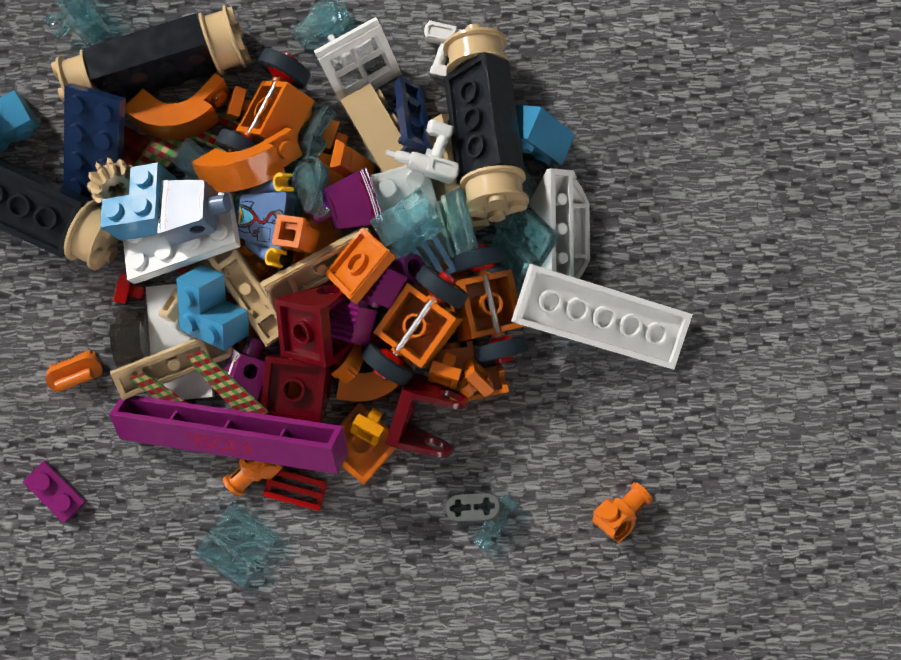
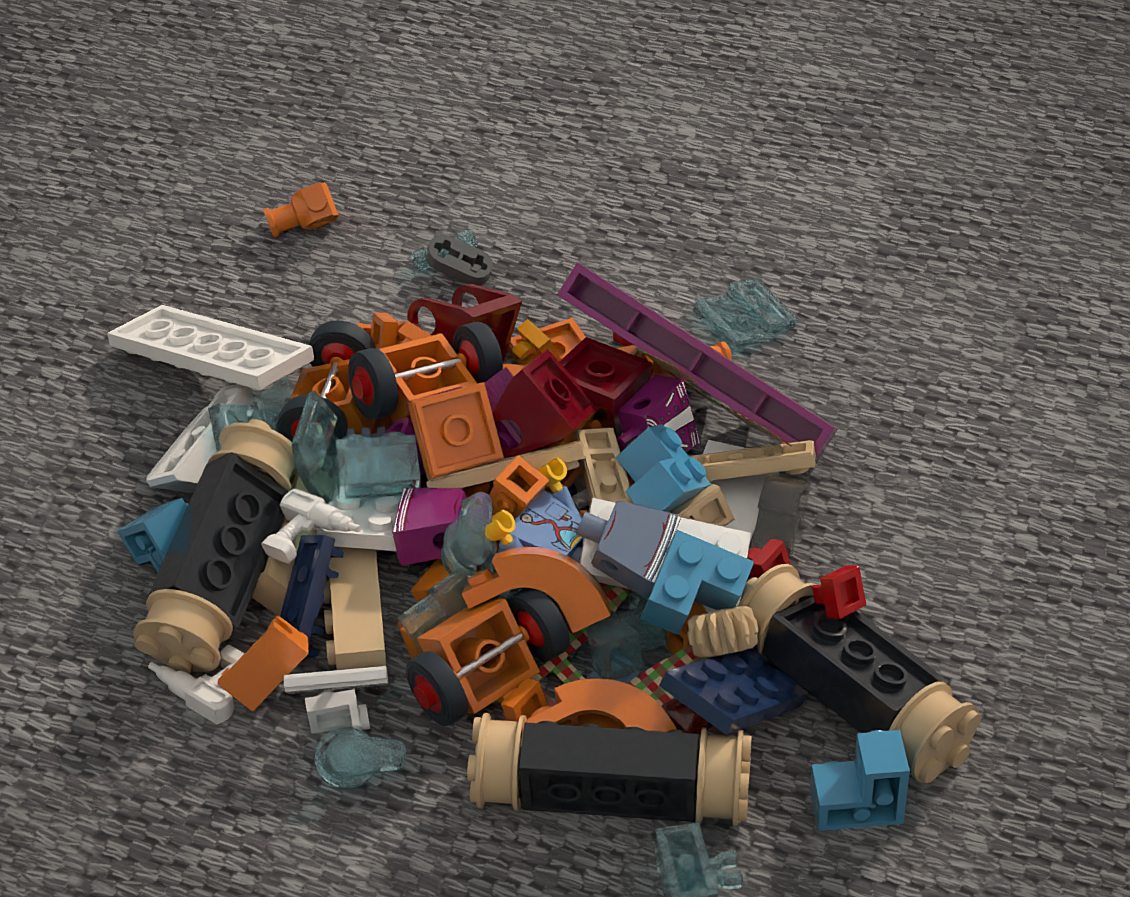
camera: 155 degrees left, 40 degrees down
(40, 242) = (840, 592): none -> red tile
(55, 491) = (942, 420): magenta plate -> none
(74, 371) = (872, 516): orange piece -> none
(348, 161) = (408, 580): orange tile -> none
(407, 53) = (265, 664): none -> orange hinge

